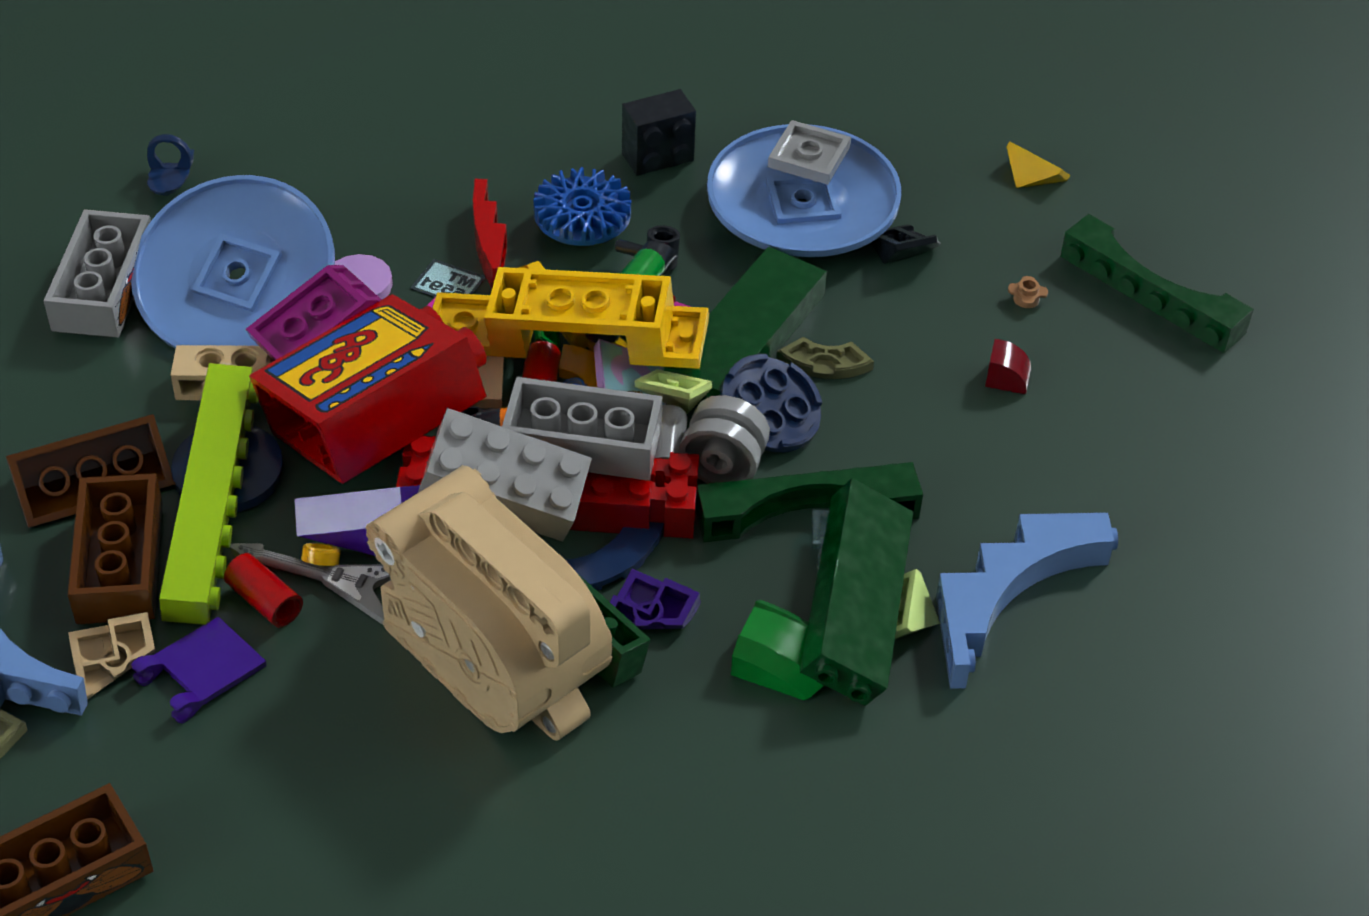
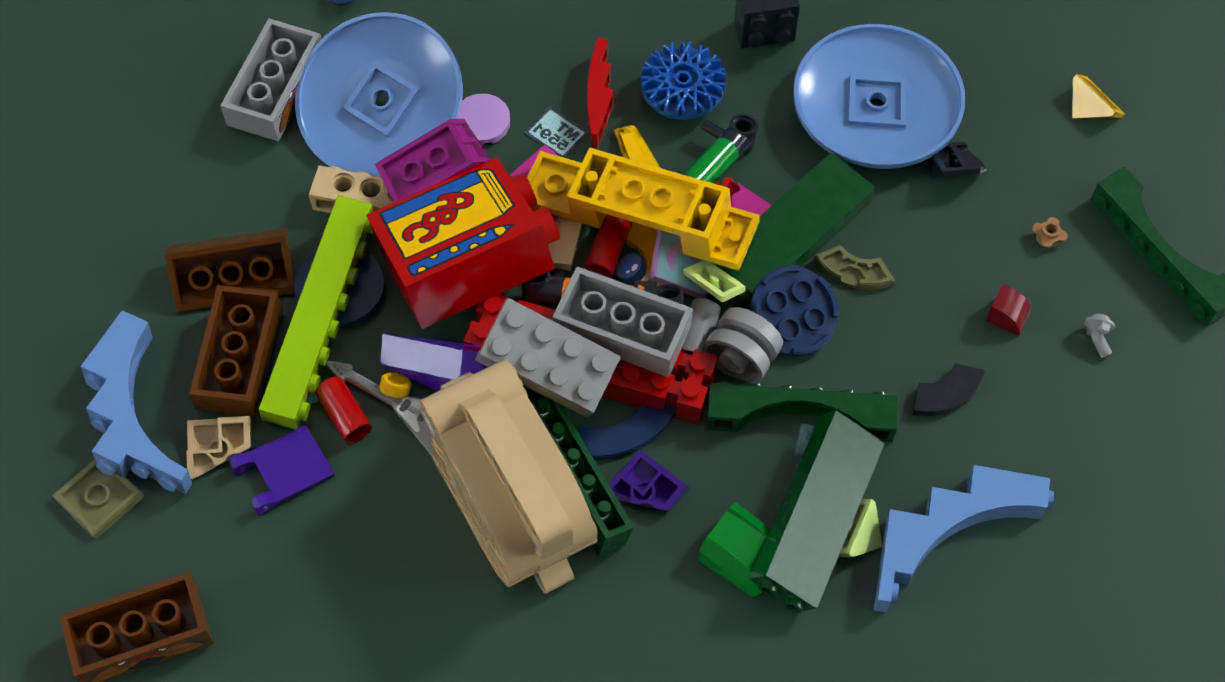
camera: 15 degrees right, 15 degrees up
(809, 152) = (891, 61): light grey plate -> none
(967, 458) = (949, 393): none -> black tile
(1108, 368) = (1097, 327): none -> light grey plate

